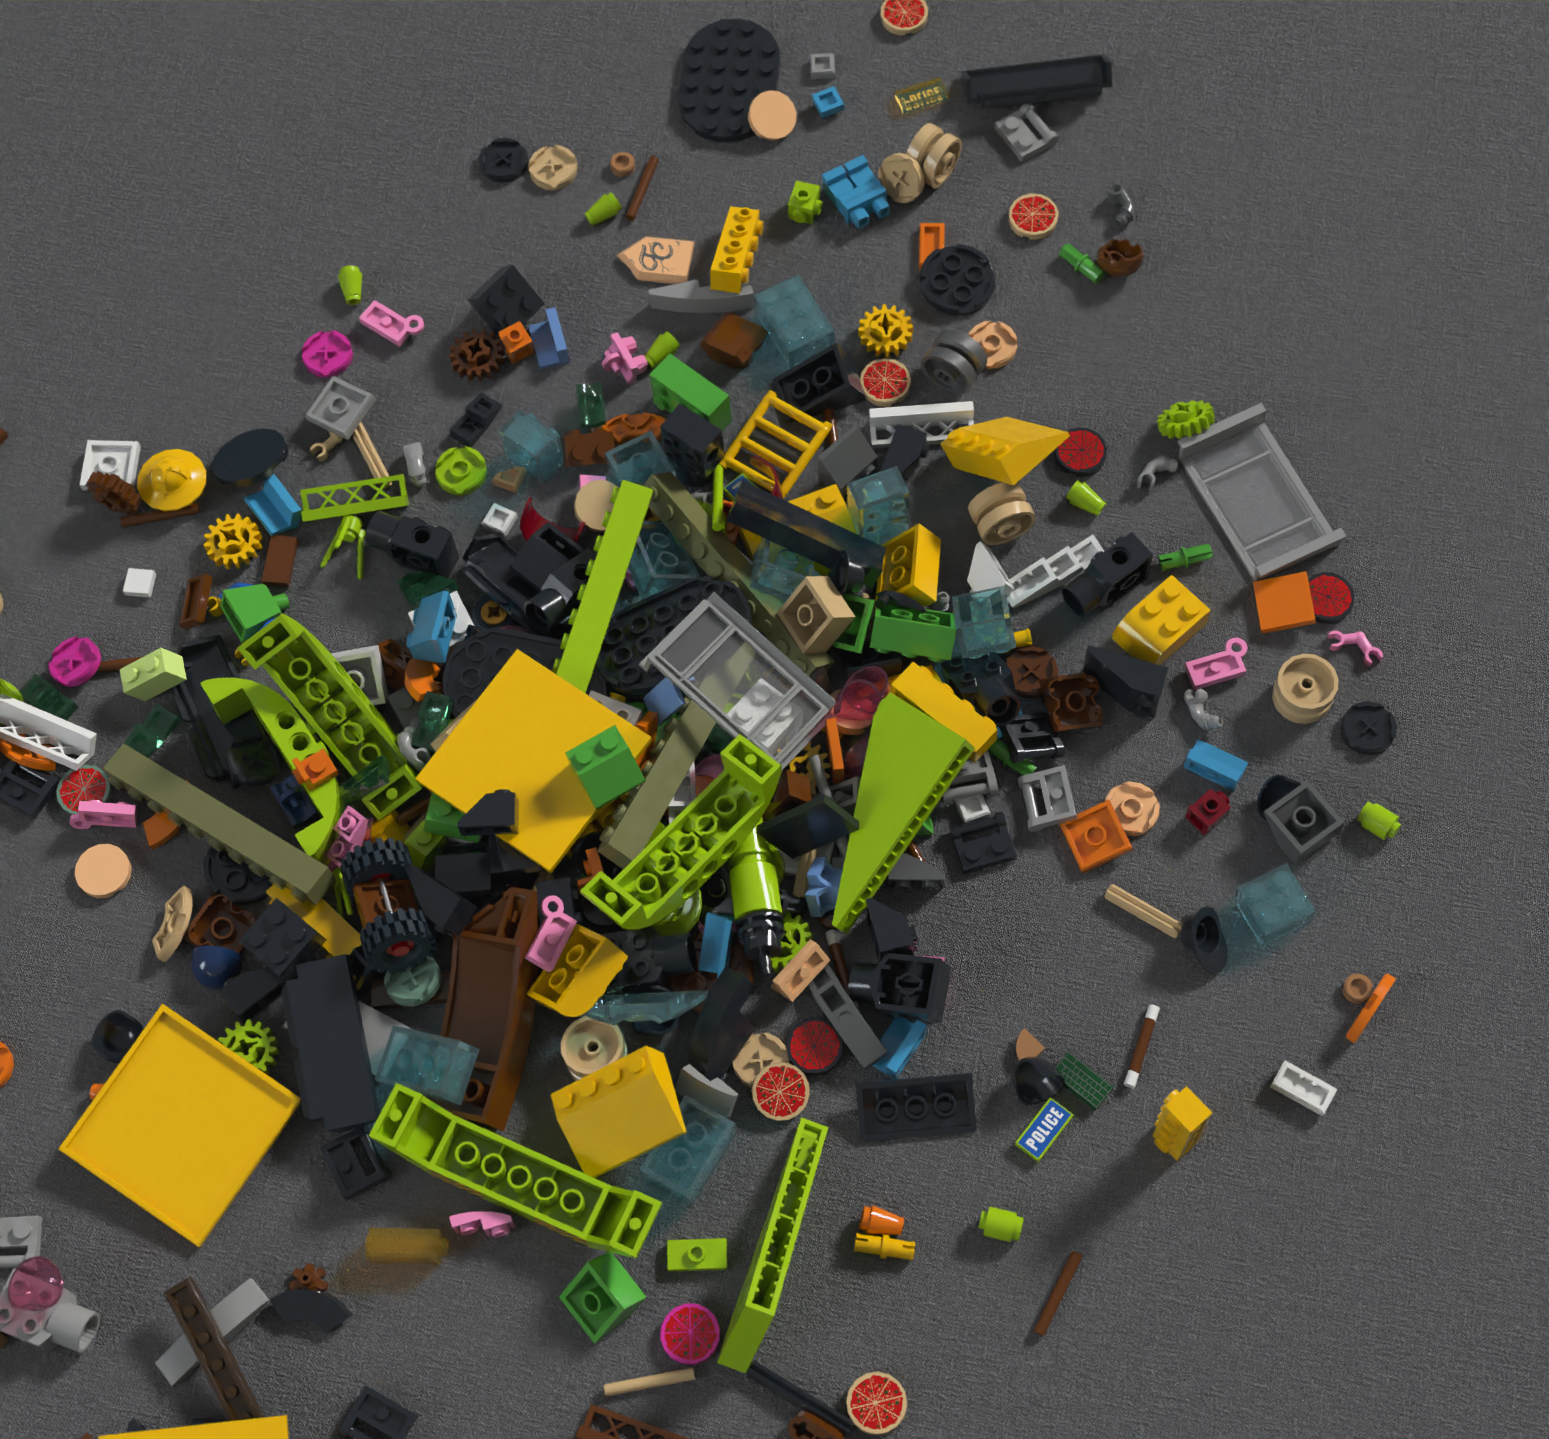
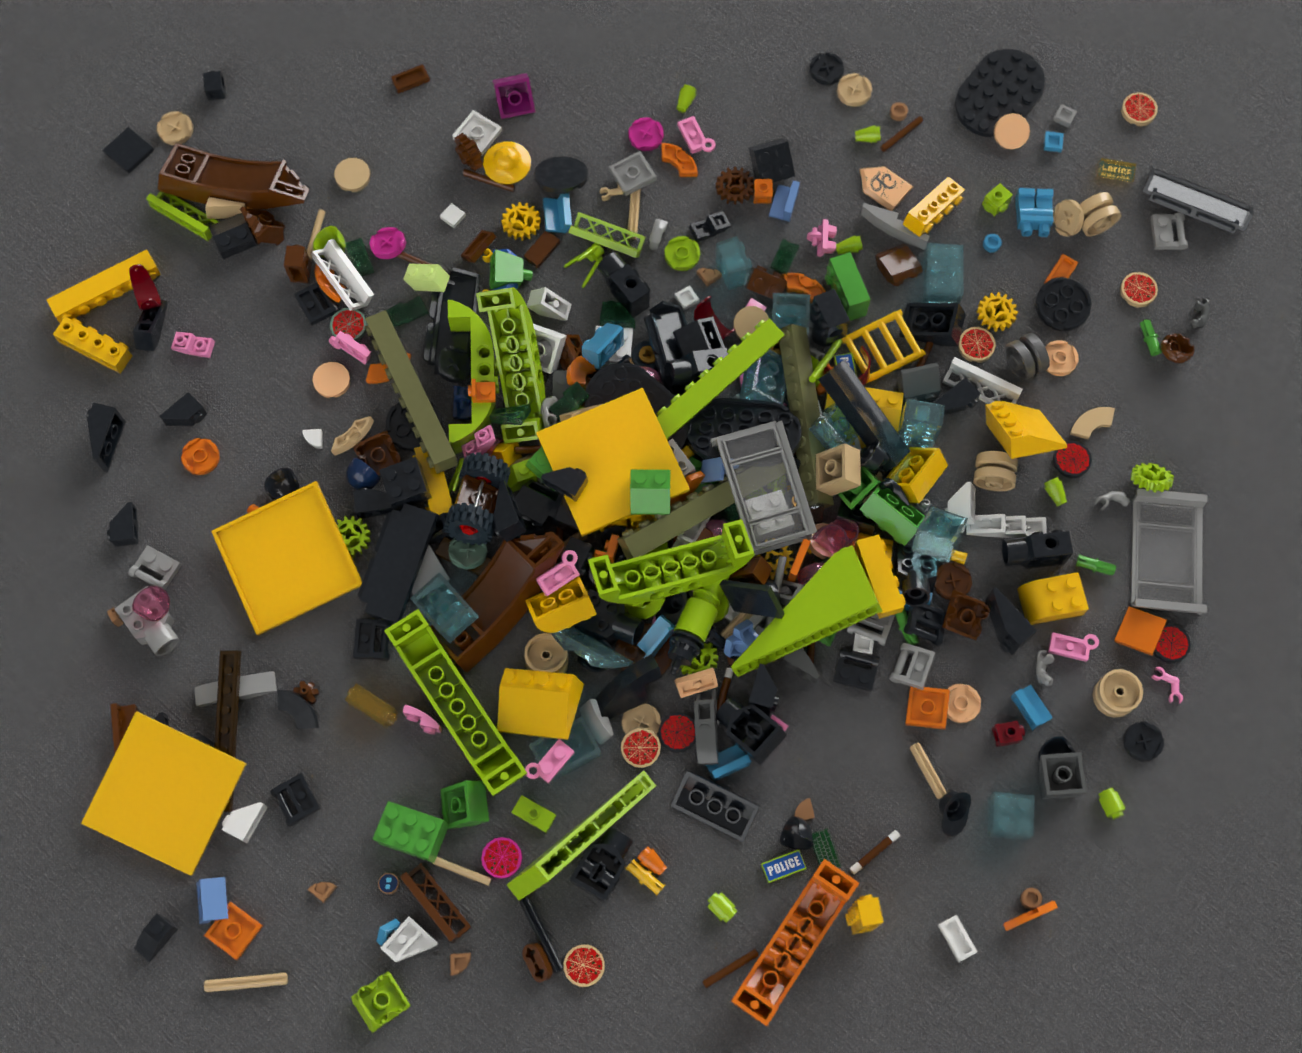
camera: 25 degrees right, 5 degrees up
(123, 955) = (313, 437): none -> white tile
(130, 395) = (514, 96): none -> magenta slope
(331, 620) = (548, 304): none -> white slope
(389, 361) = (680, 159): none -> orange tile
(555, 1371) = (411, 832): none -> bright green brick
(683, 1173) = (551, 762): none -> bright pink hinge
(823, 1263) = (602, 865): none -> black brick
(829, 256) = (992, 243): none -> dark azure tile
(1075, 394) = (1092, 420): none -> tan tile
(1116, 1208) = (794, 942): none -> orange slope

